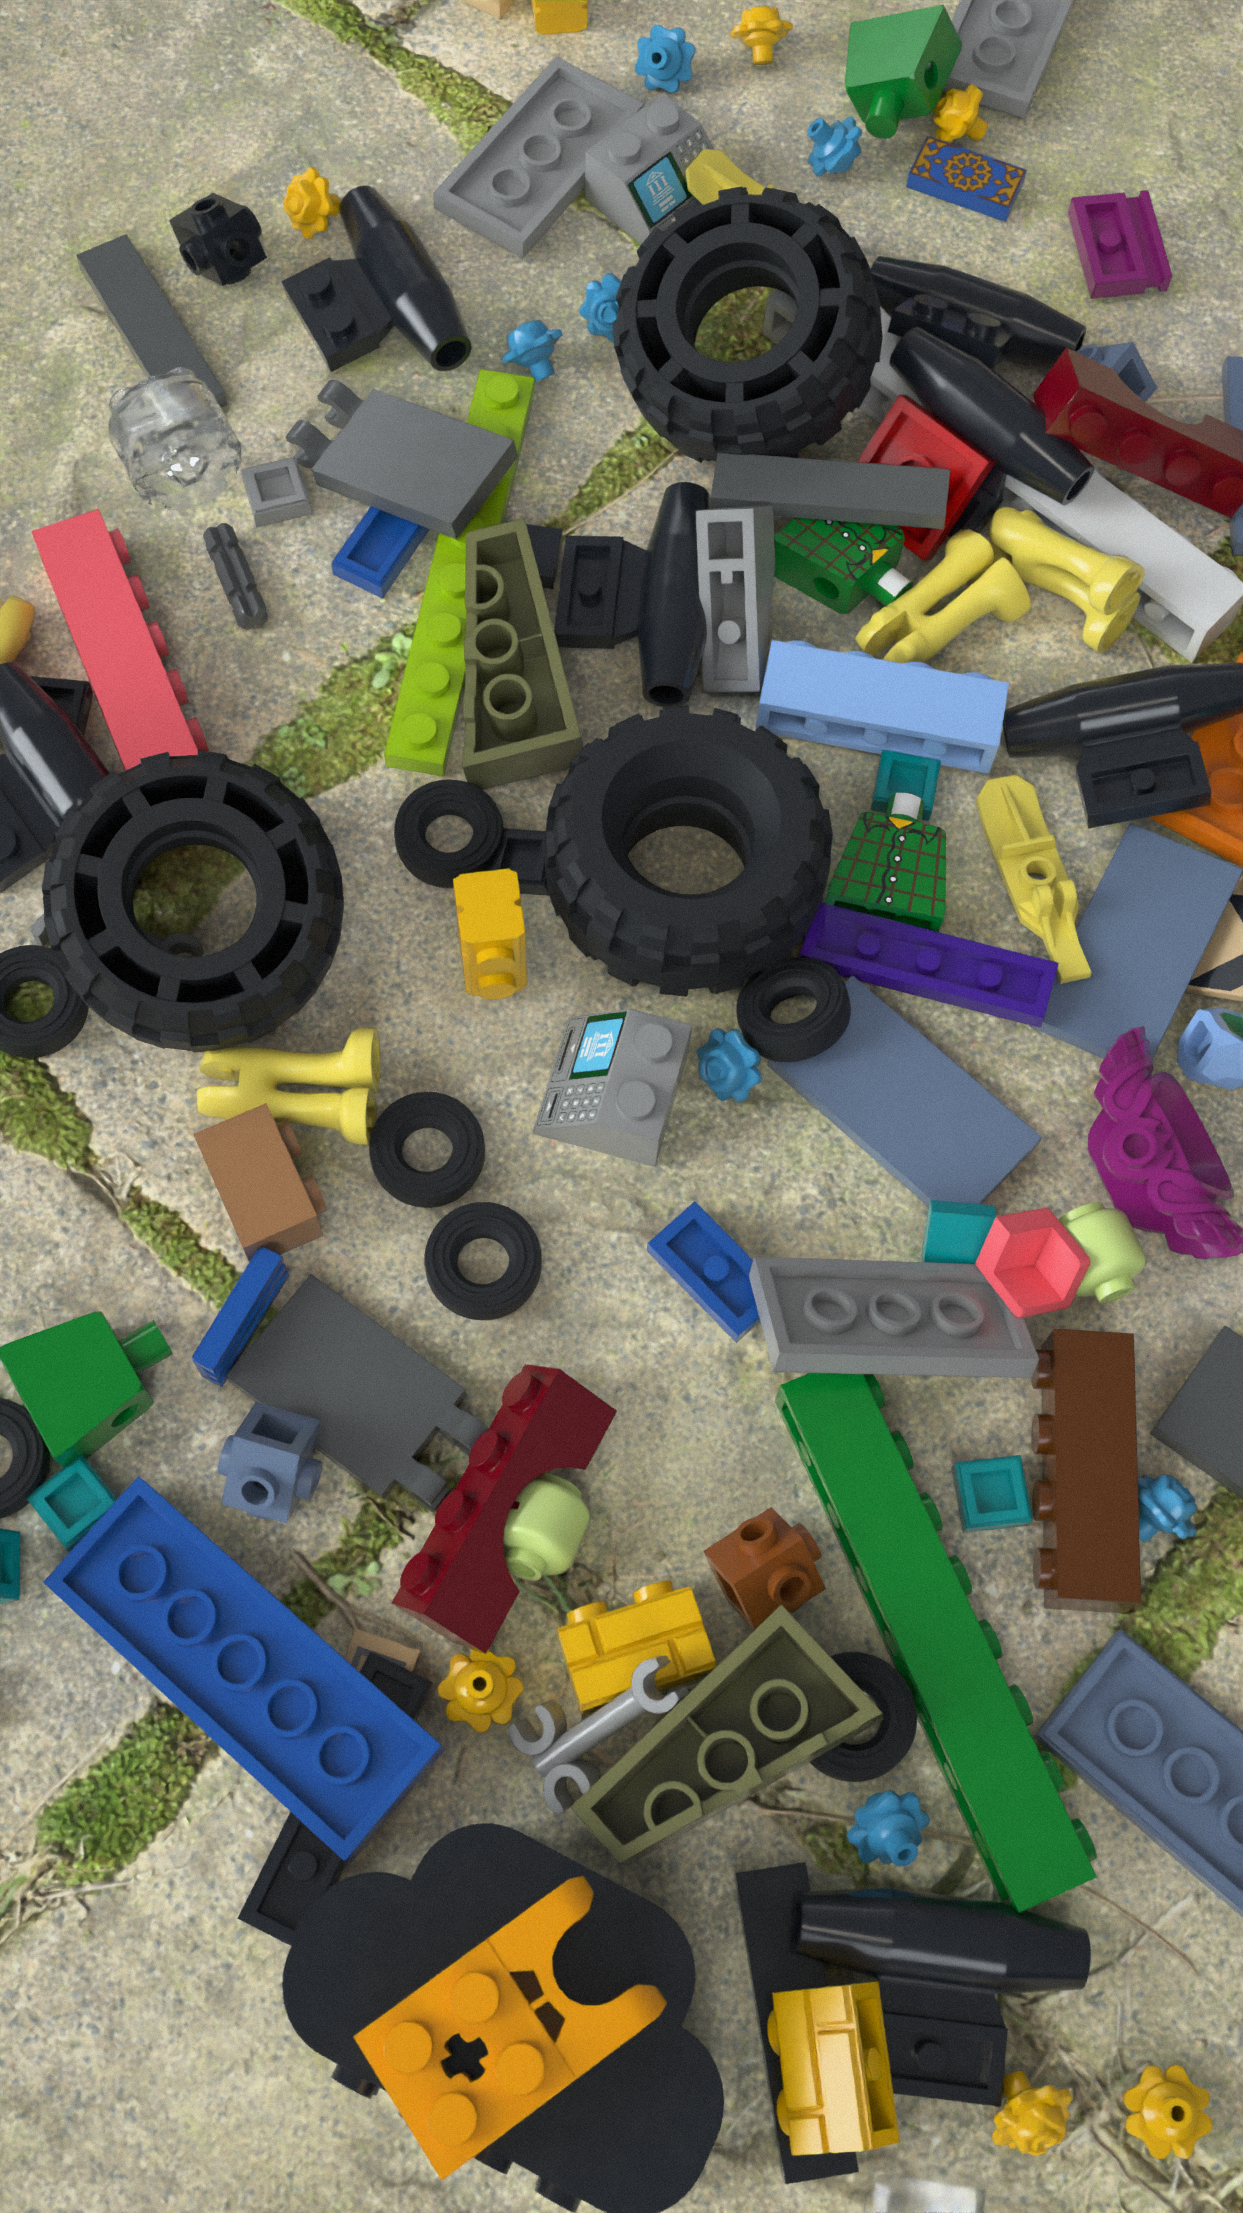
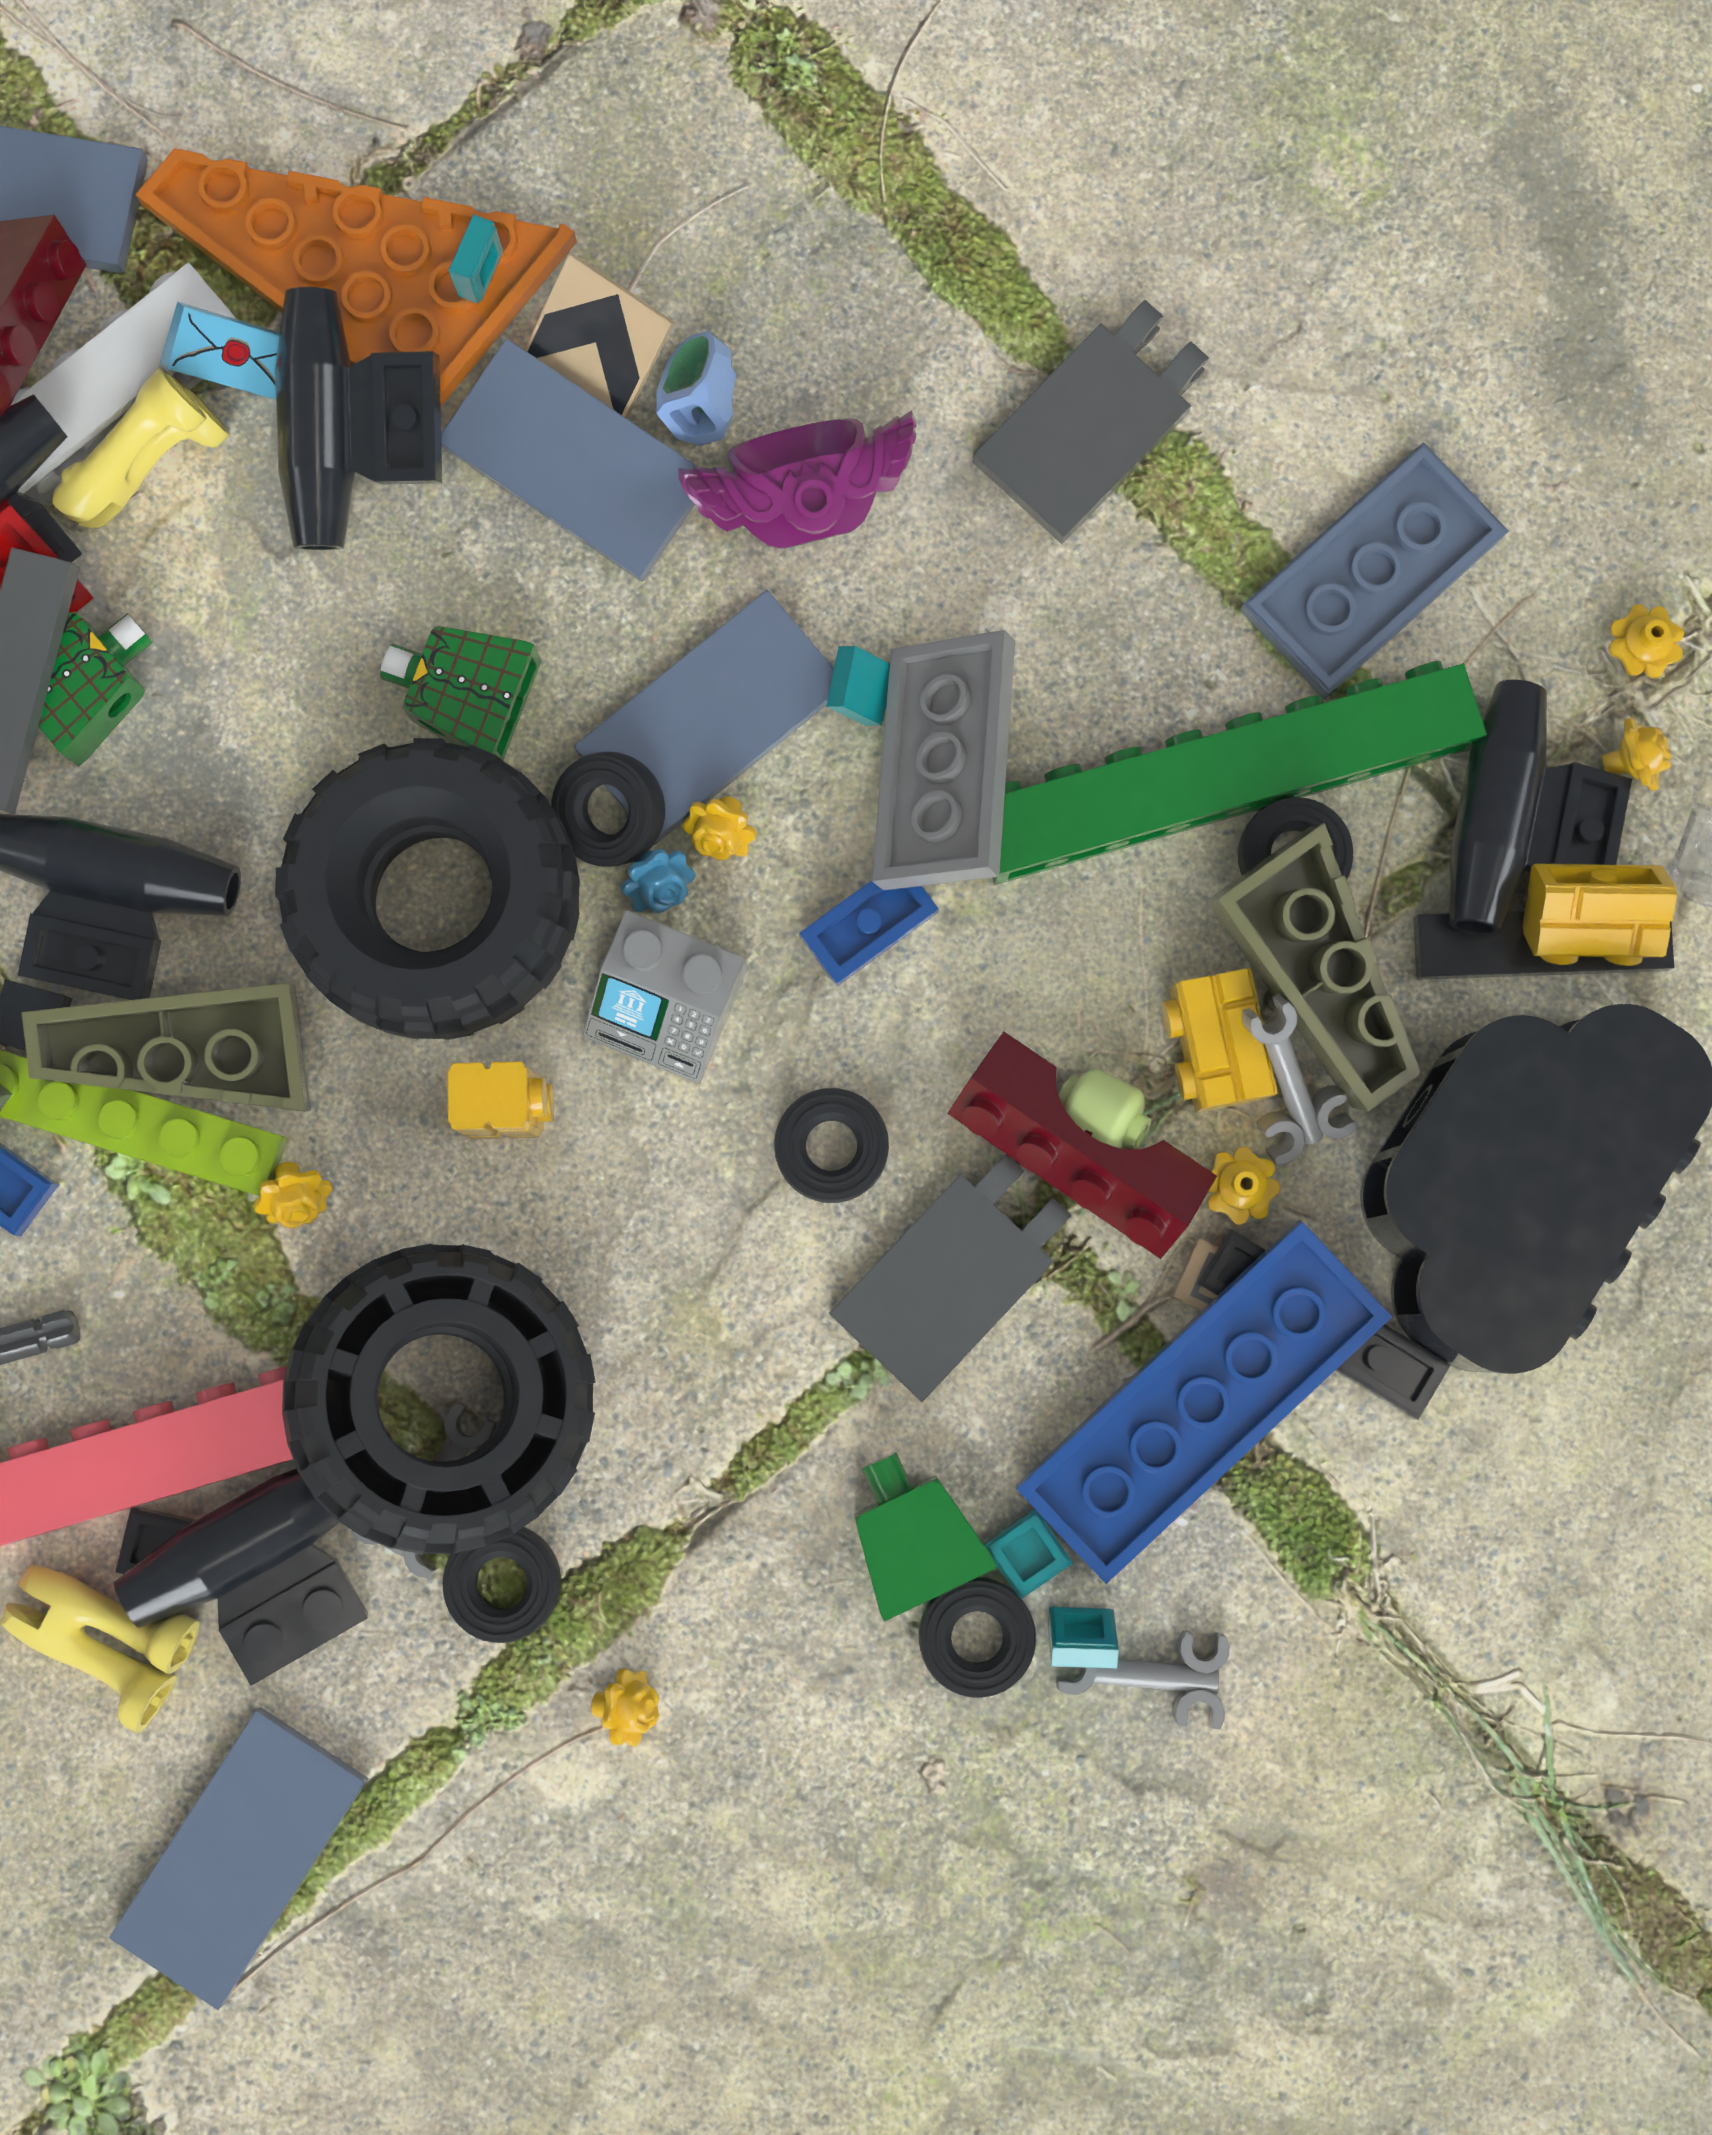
camera: 80 degrees left, 15 degrees up
(240, 1316) = (866, 1384): blue tile -> none
(260, 1183) = (735, 1354): medium nougat brick -> none
(264, 1069) = (643, 1350): light yellow piece -> none
(270, 1463) = (1018, 1361): sand blue brick -> none
(386, 778) = (293, 1196): none -> yellow plant
(419, 1112) = (670, 1183): black tyre -> none
(443, 799) = (333, 1108): black tyre -> none
(524, 854) = (404, 1065): black tile -> none
(529, 2026) = (1548, 1173): light orange brick -> none
(735, 594) = (121, 800): light grey slope -> none
(766, 1567) = (1163, 911): dark orange brick -> none
(790, 1116) = (719, 828): none -> yellow plant
(882, 705) = (274, 668): light blue brick -> none
(889, 1828) = (1398, 837): dark azure plant -> none
(905, 774) = (356, 659): teal tile -> none
(920, 637) = (192, 611): light yellow piece -> none
(932, 964) = (574, 664): dark purple plate -> none
(991, 1494) = (1106, 698): teal tile -> none
(1023, 847) = (449, 555): light yellow piece -> none
(1032, 1262) = (902, 619): coral panel -> none
(1087, 1472) = (1101, 606): reddish brown brick -> none
(1112, 1251) = (894, 558): yellowish green head -> none
(1164, 1507) = (1139, 544): dark azure plant -> none
(1173, 618) = (222, 350): none -> medium azure tile

